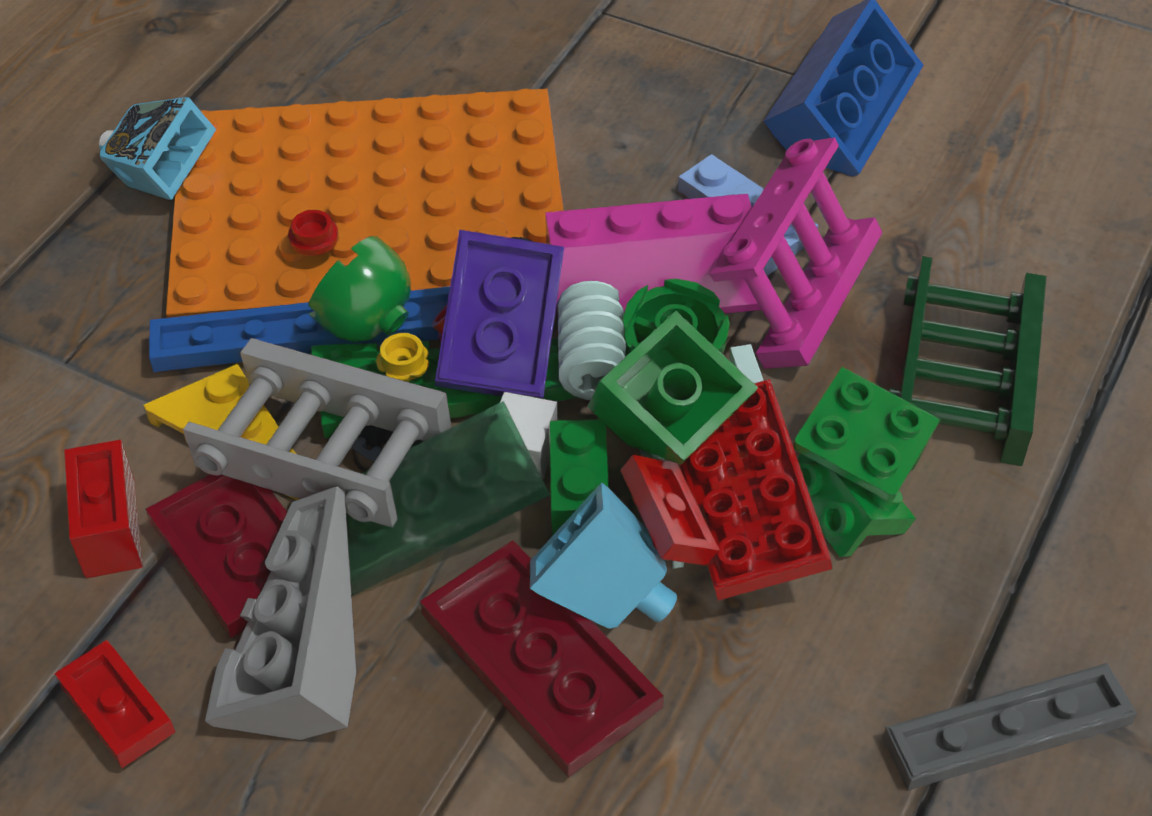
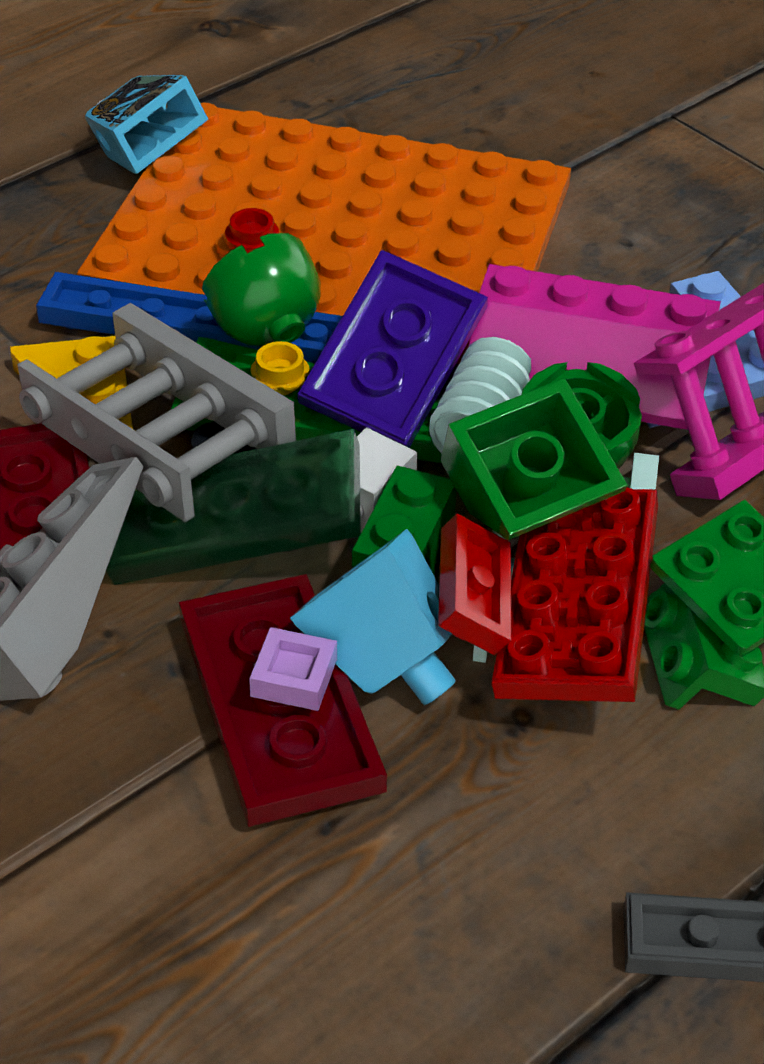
camera: 20 degrees right, 5 degrees down
(552, 631) = (293, 668): none -> lavender plate

